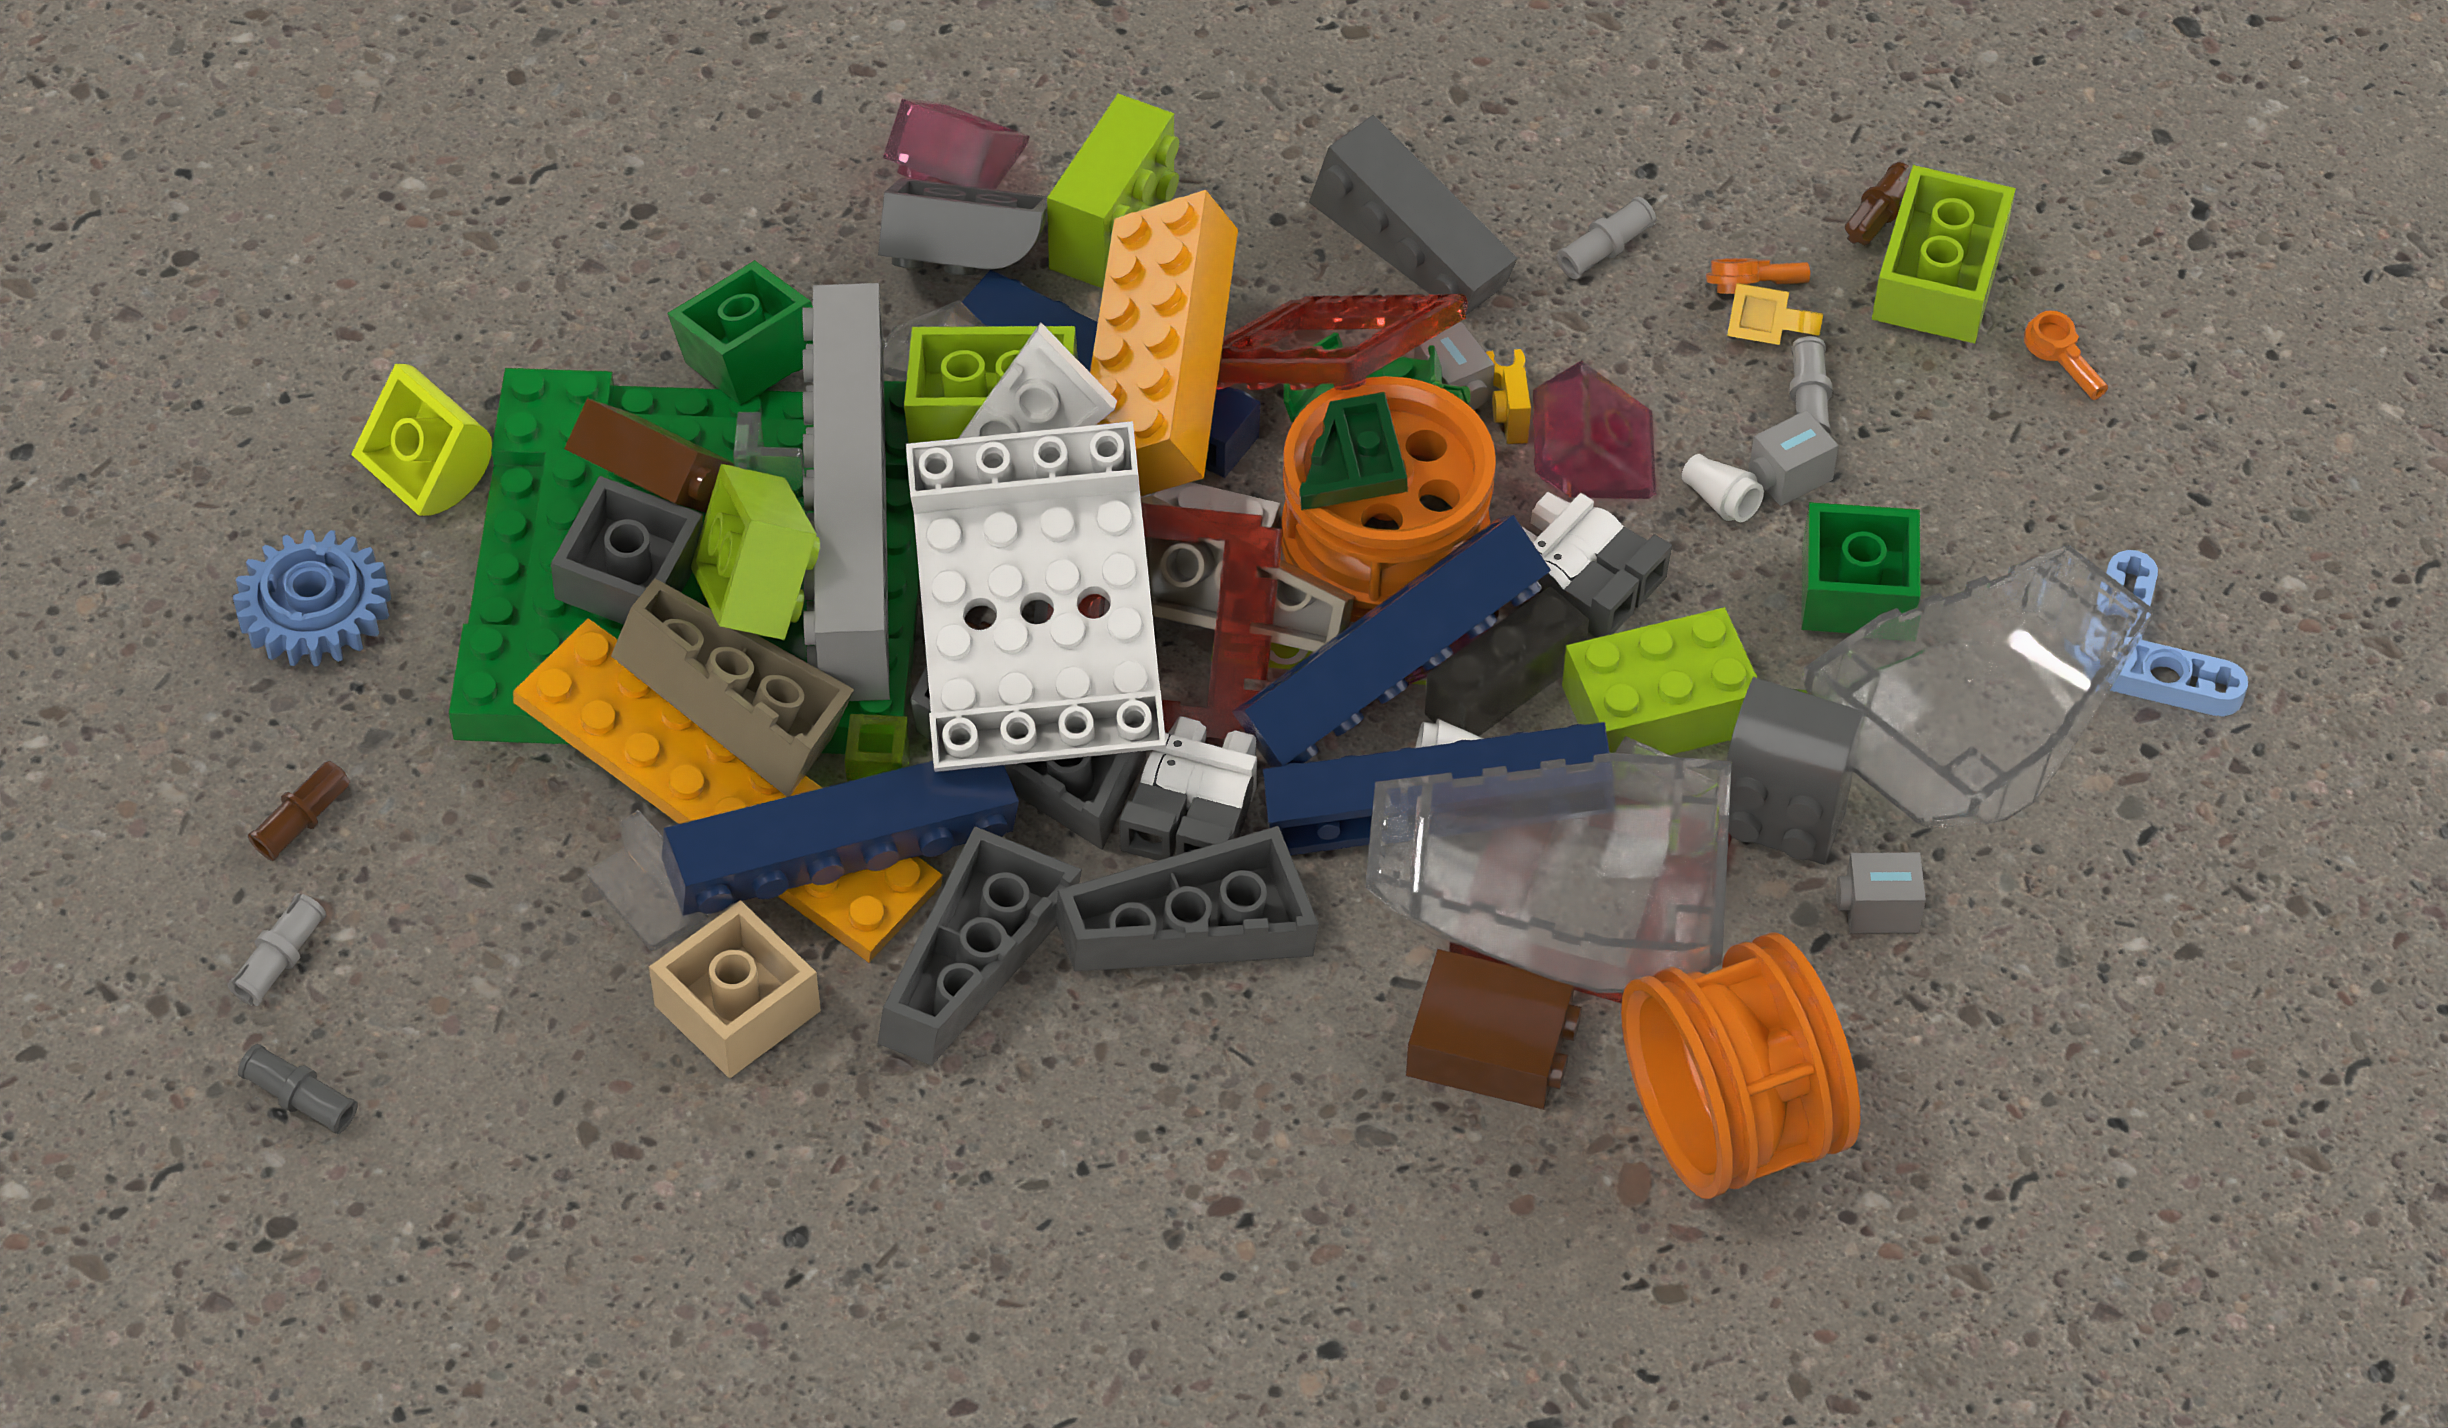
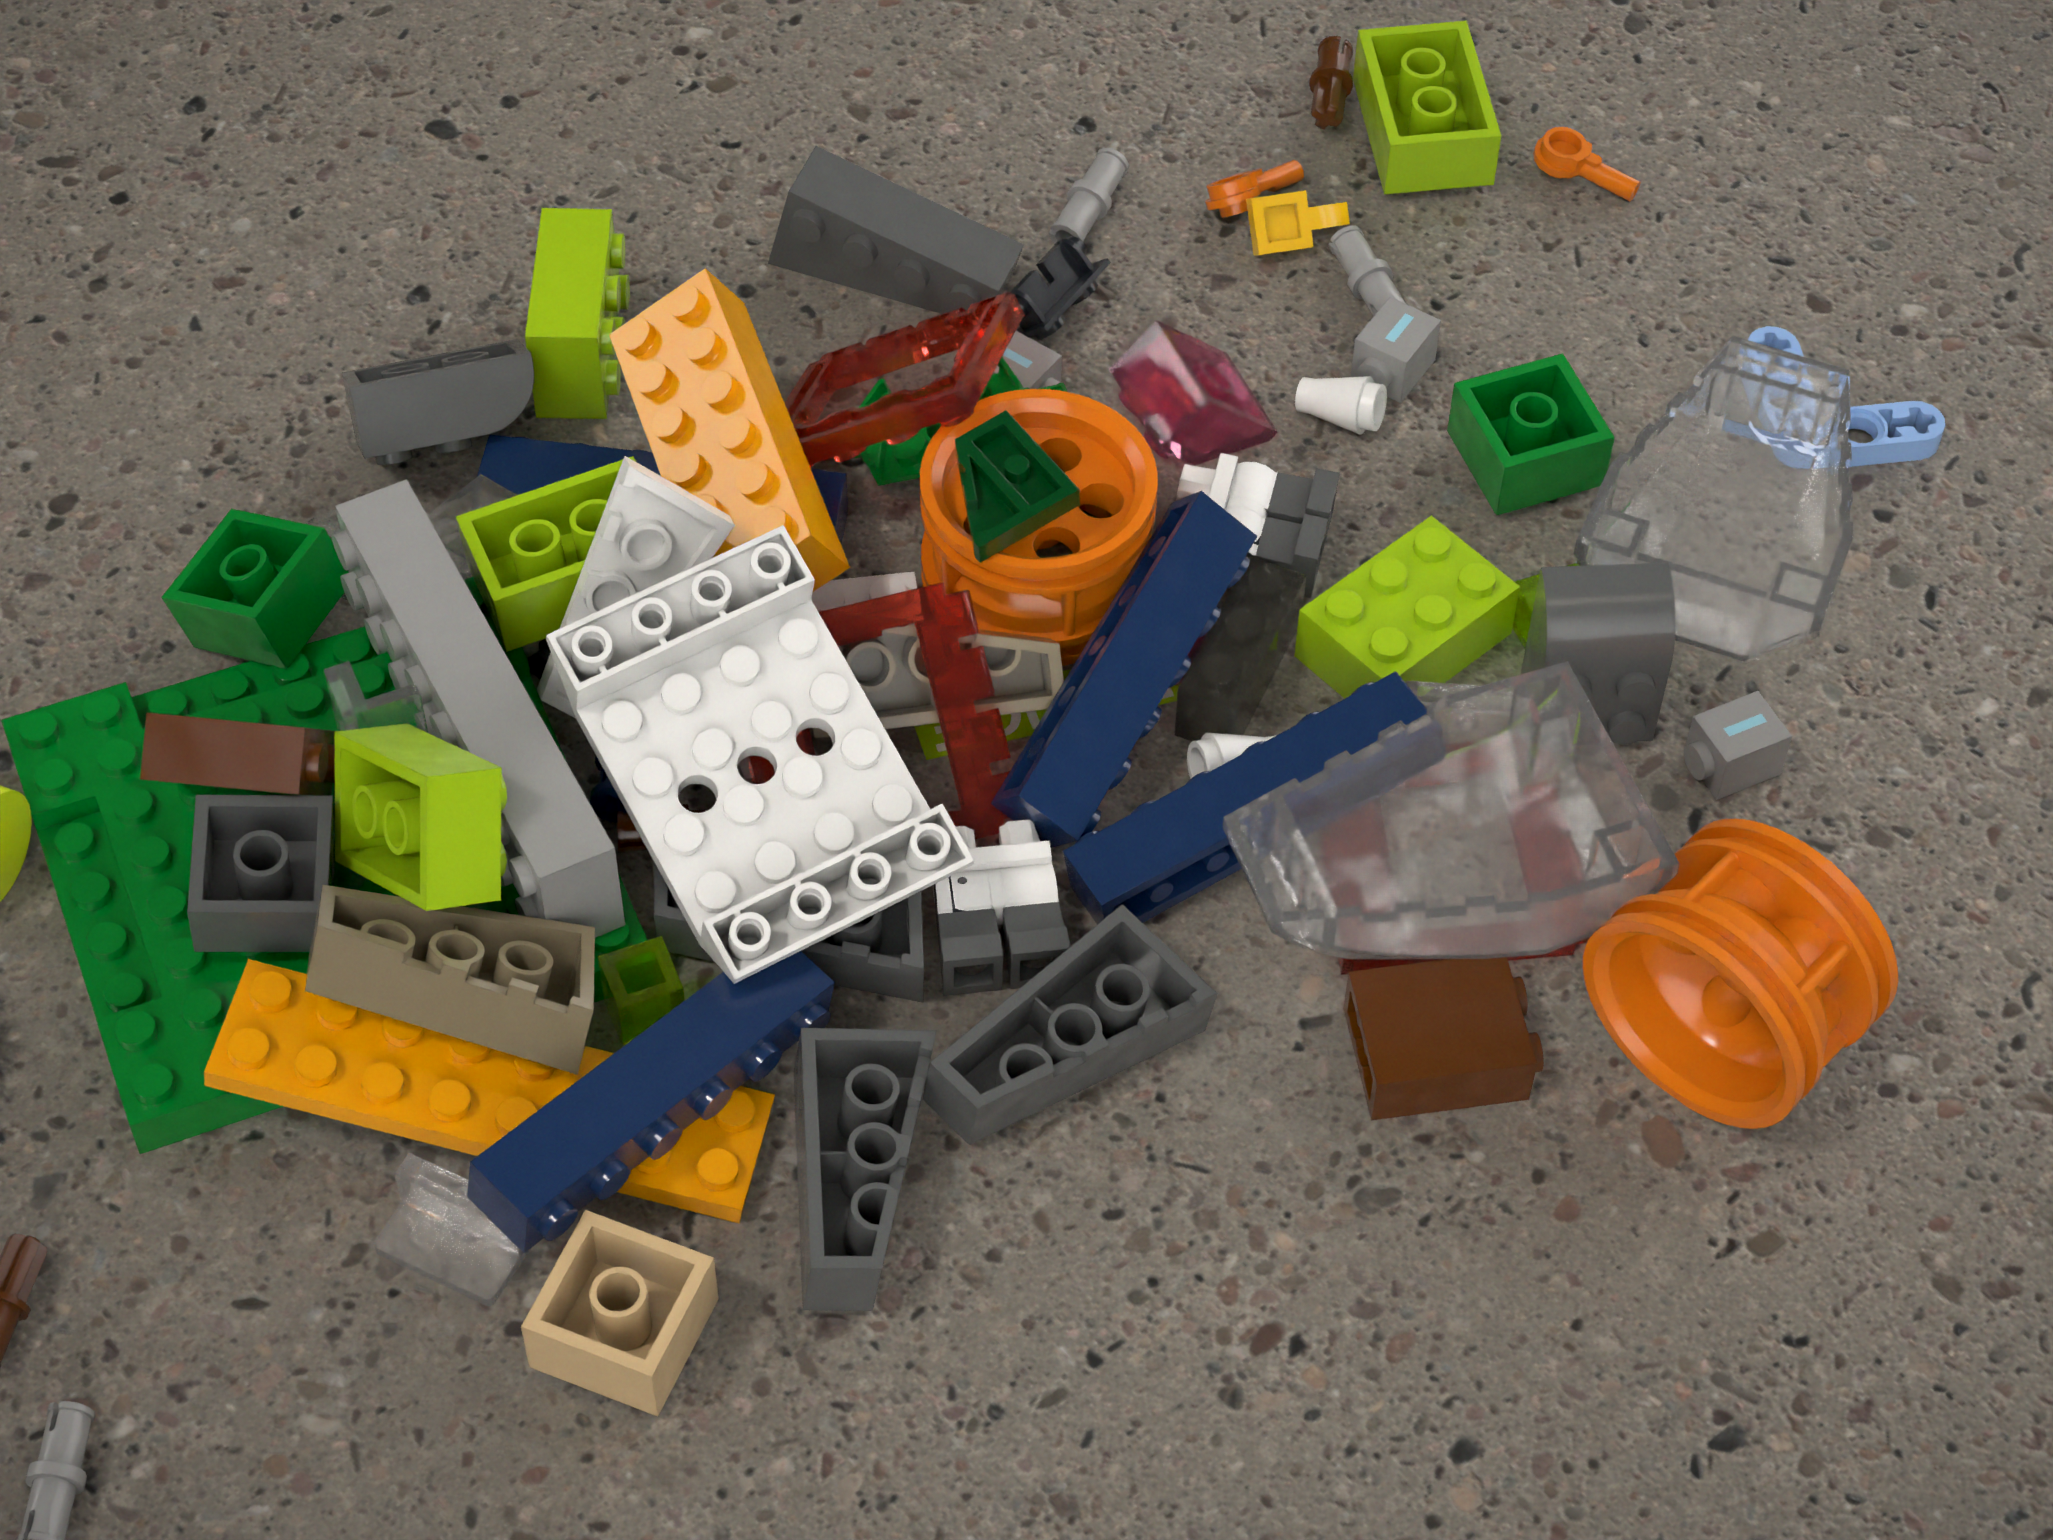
camera: 25 degrees left, 0 degrees up
(951, 145) = (372, 325): clear pink slope -> none
(1509, 315) = (1069, 282): none -> black hinge
(1512, 401) = (1090, 374): yellow plate -> none

